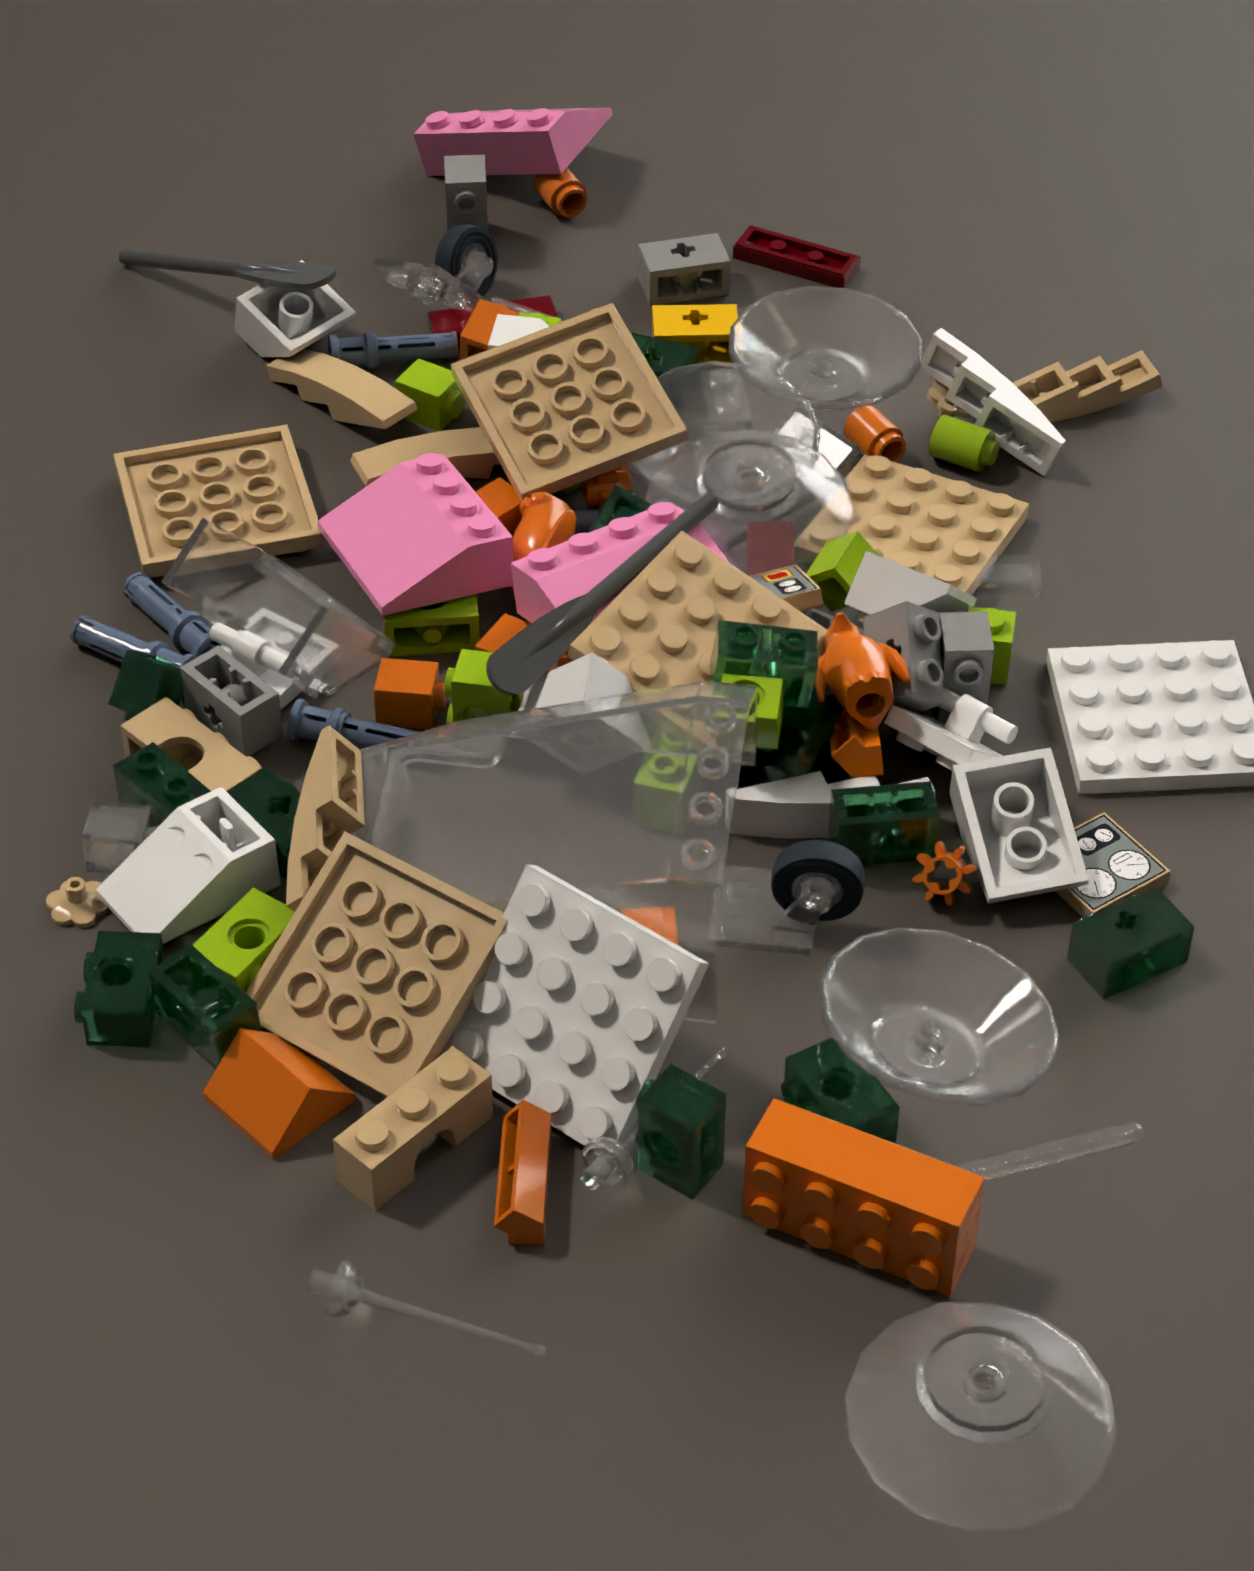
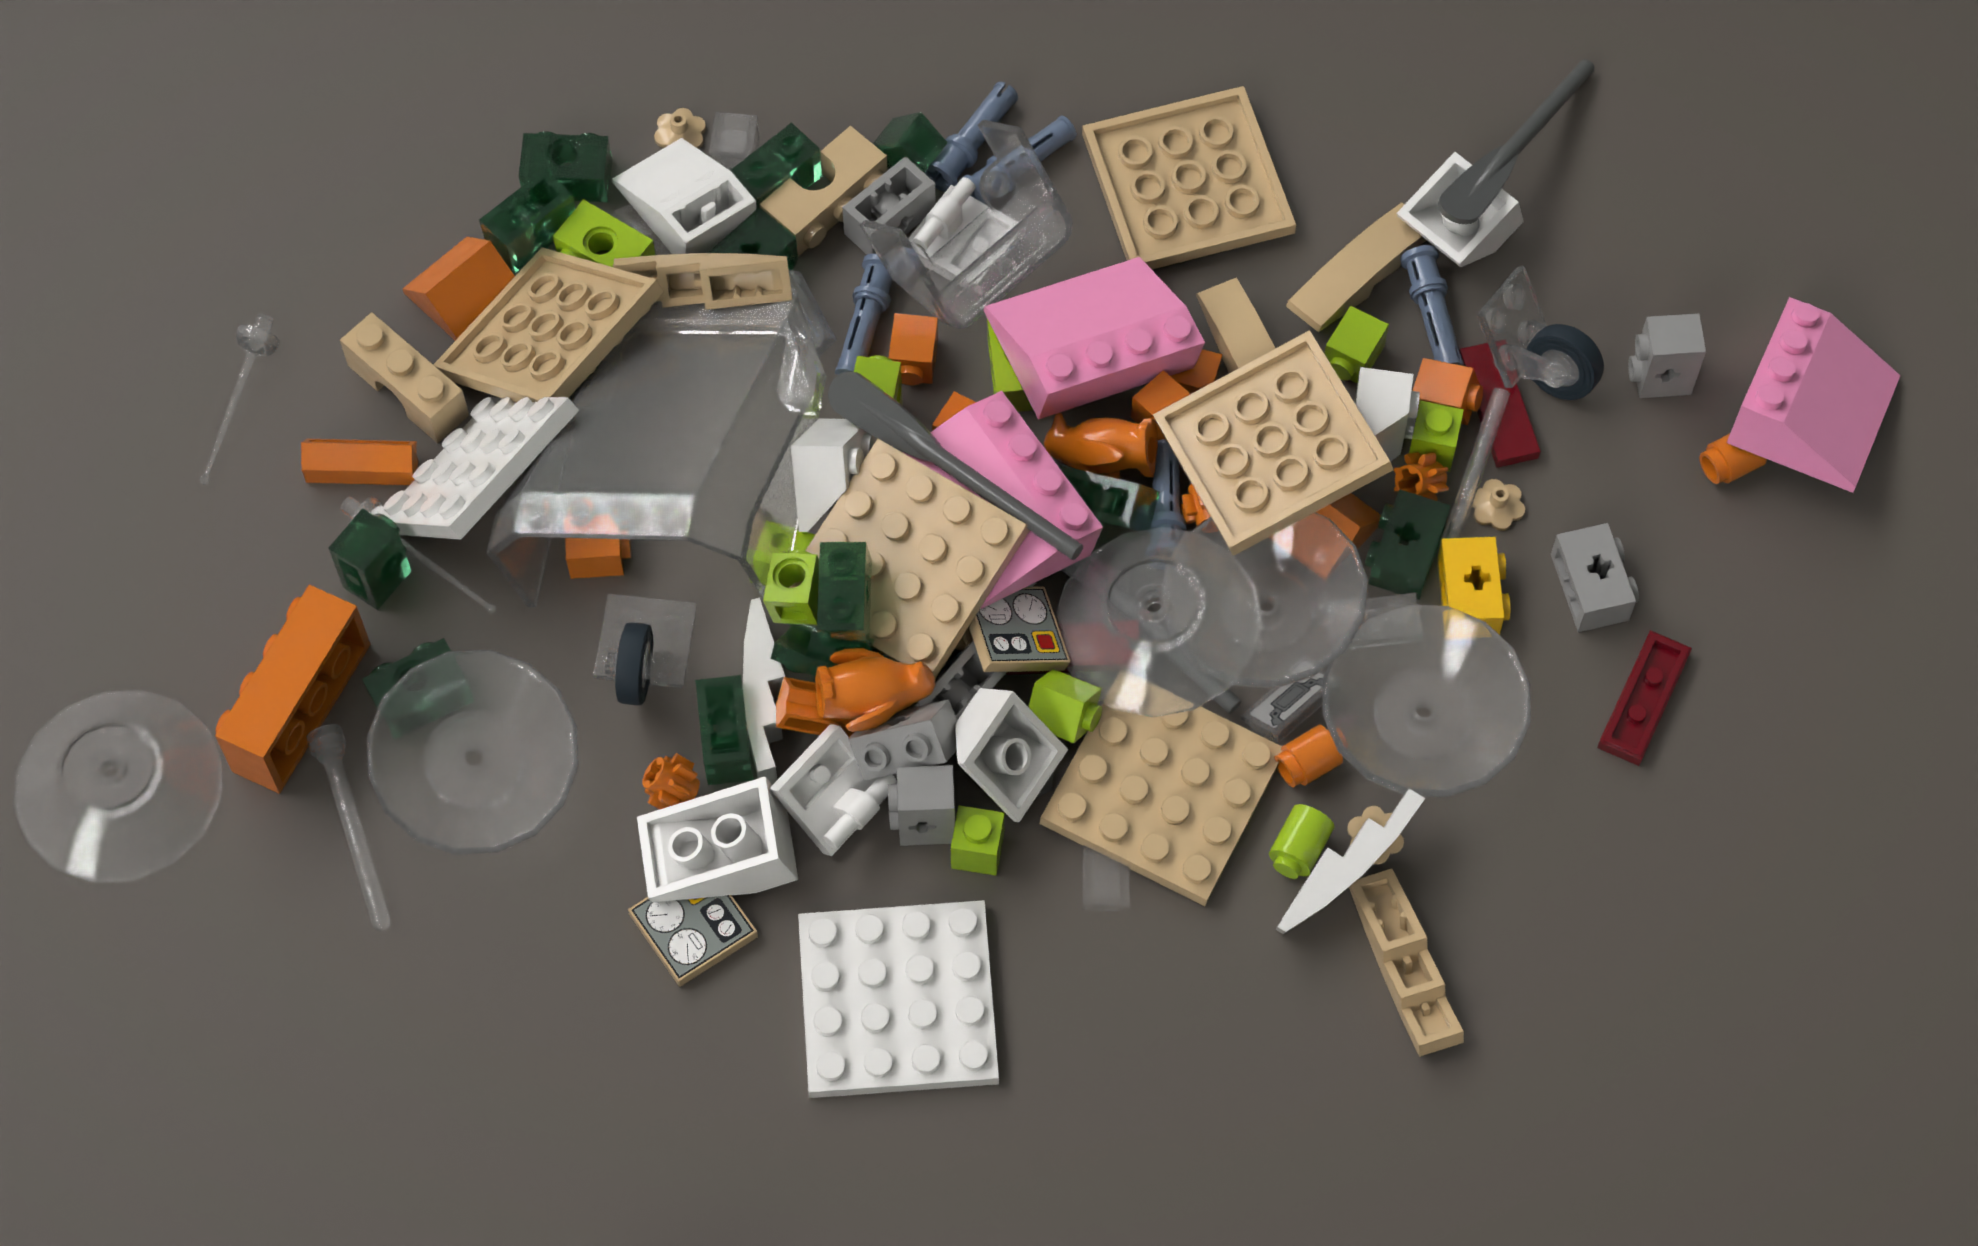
camera: 90 degrees right, 20 degrees up
(1130, 942) = (591, 958): clear green brick -> none

